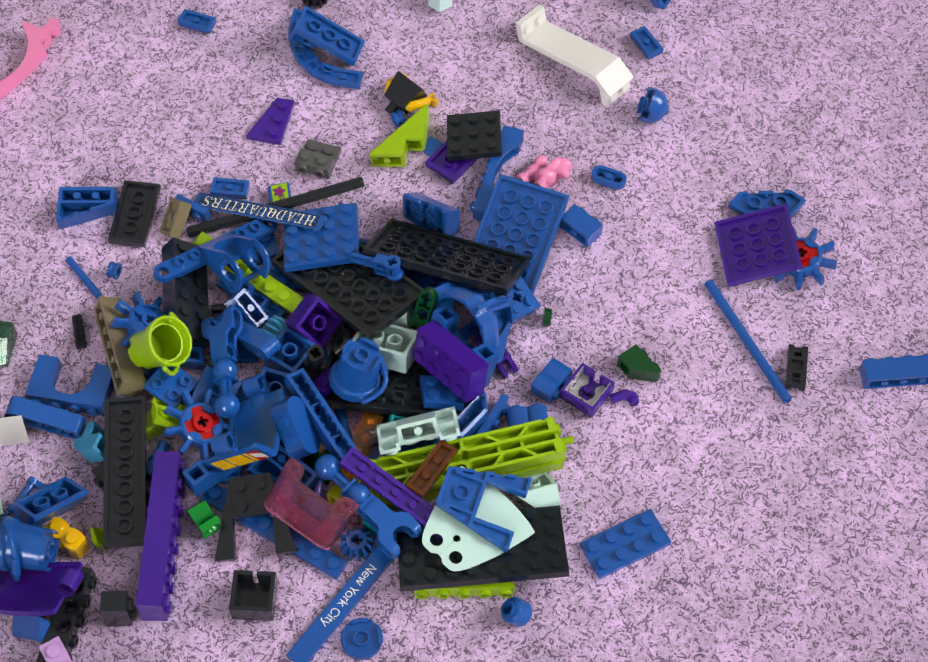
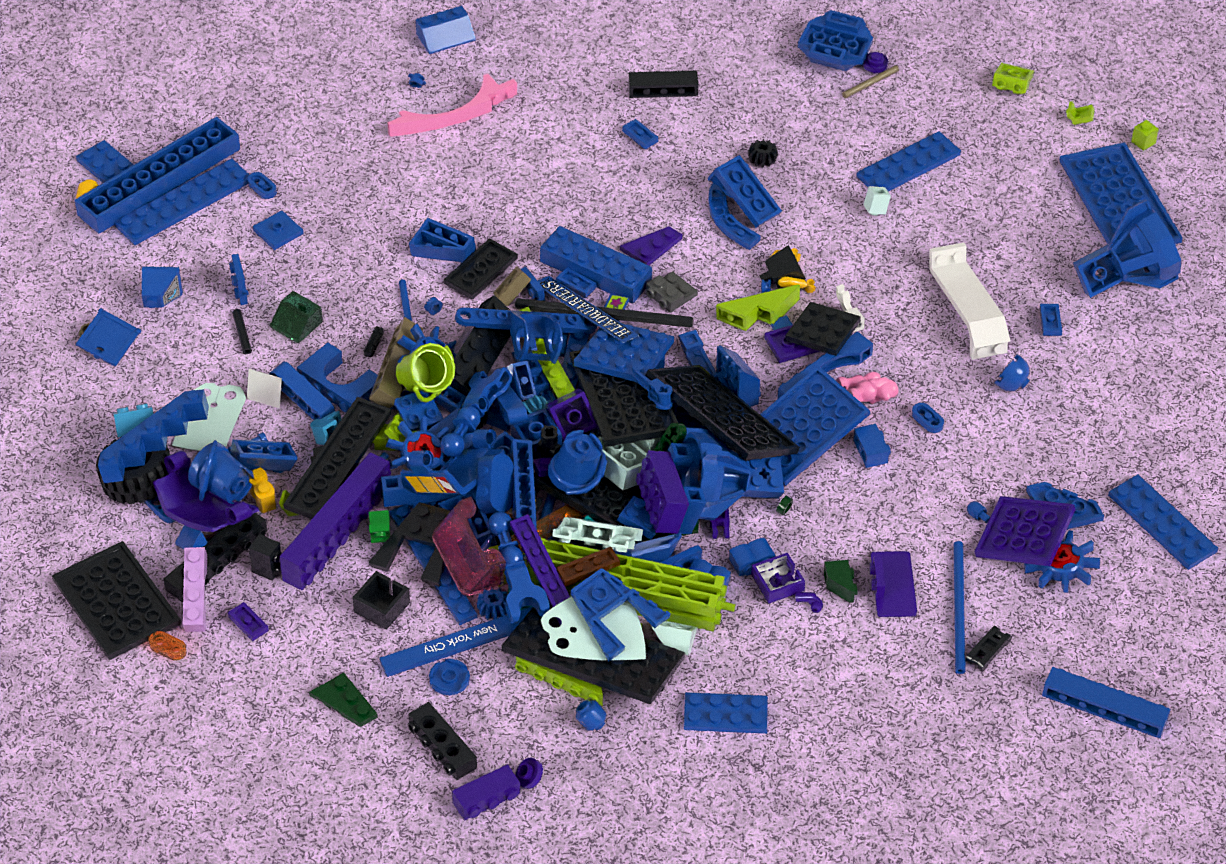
camera: 30 degrees right, 10 degrees down
(237, 160) = (608, 268): none -> blue brick
(379, 210) = (695, 354): none -> blue slope
(474, 101) = (844, 298): none -> white piece
(682, 346) = (893, 584): none -> dark purple bracket
(704, 244) = (977, 510): none -> blue cylinder
(850, 182) = (1163, 522): none -> blue plate

